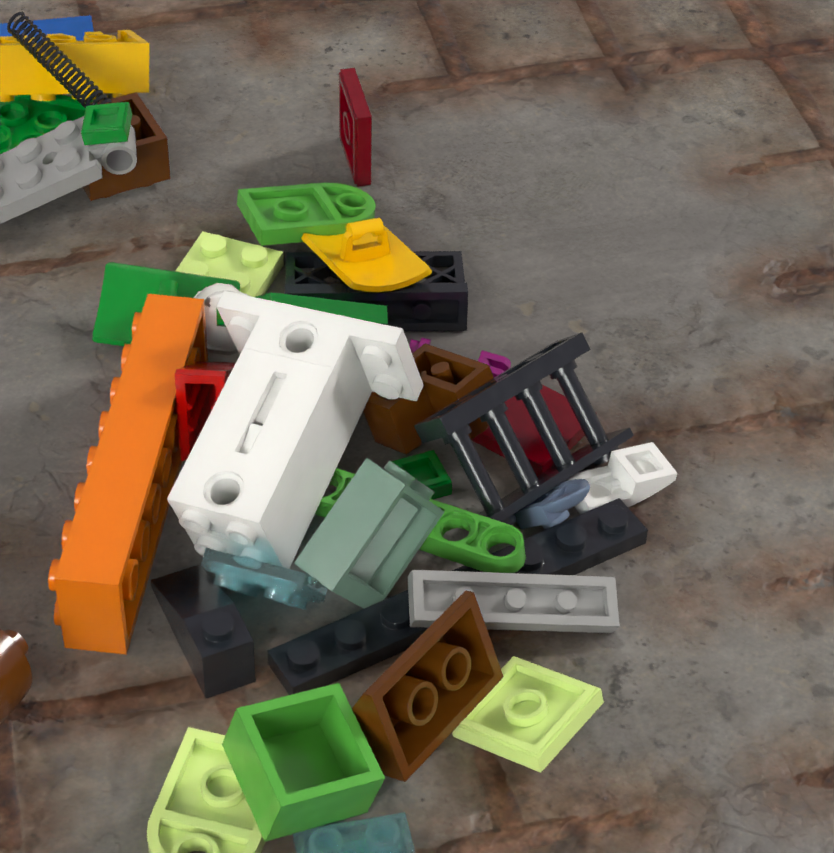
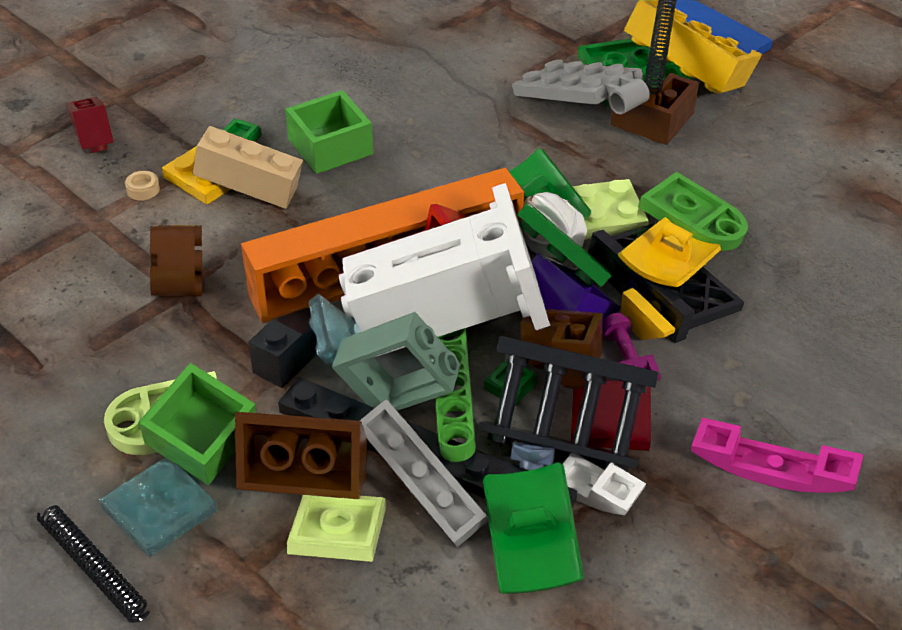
camera: 60 degrees right, 0 degrees up
(106, 123) = (629, 76): green tile -> none
(355, 127) = (789, 188): dark red tile -> none
(439, 325) = (645, 319): none -> yellow tile
(650, 552) = (532, 530): none -> green shield
(692, 344) = (775, 465): none -> dark pink slope

